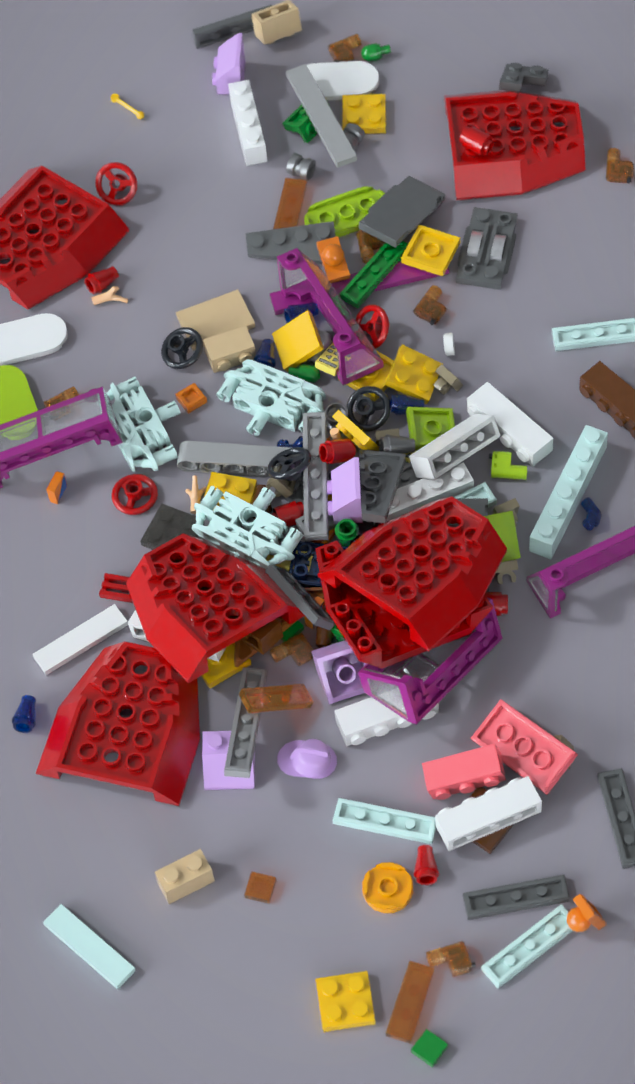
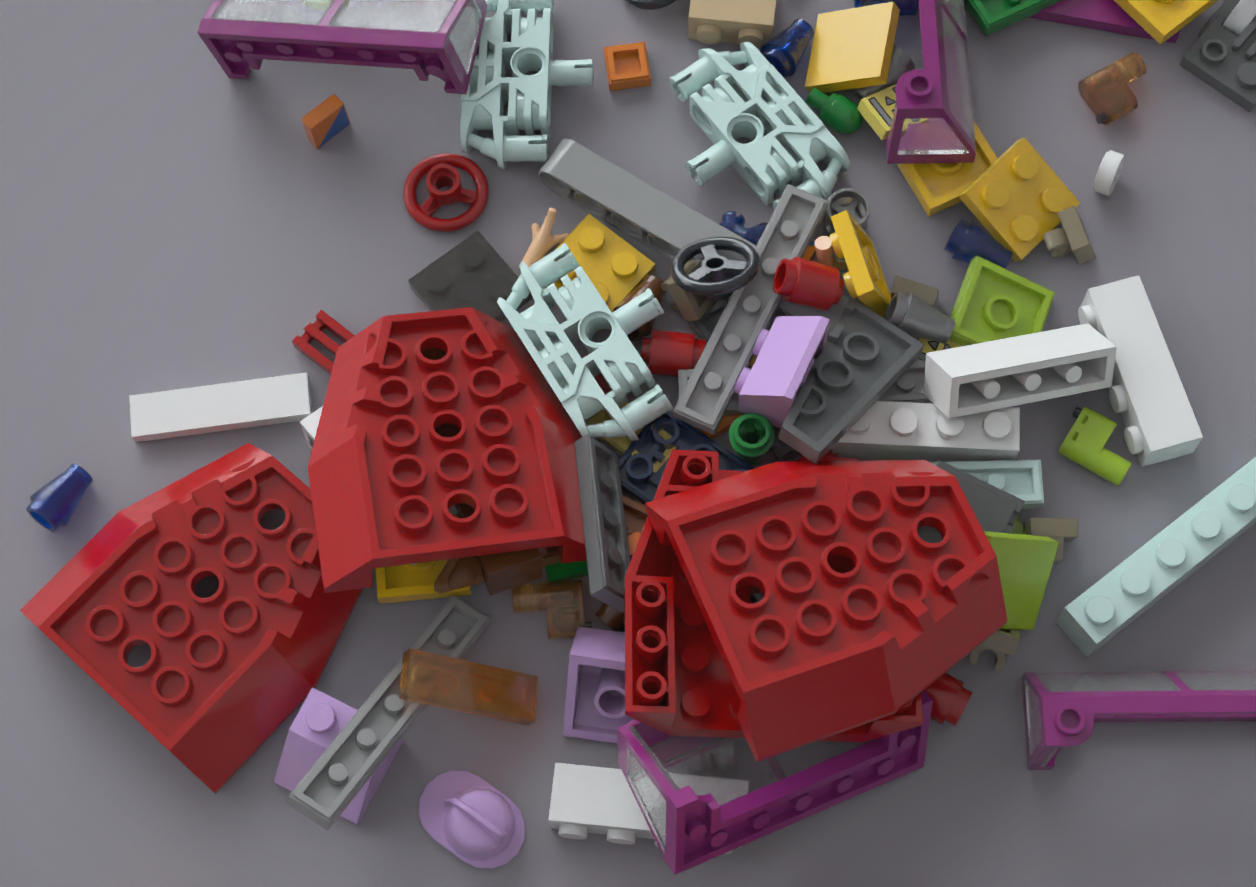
camera: 25 degrees right, 10 degrees up
(360, 405) = (897, 214): black piece -> none
(375, 327) = (999, 84): red piece -> none
(593, 514) = (1204, 613): clear blue arm -> none

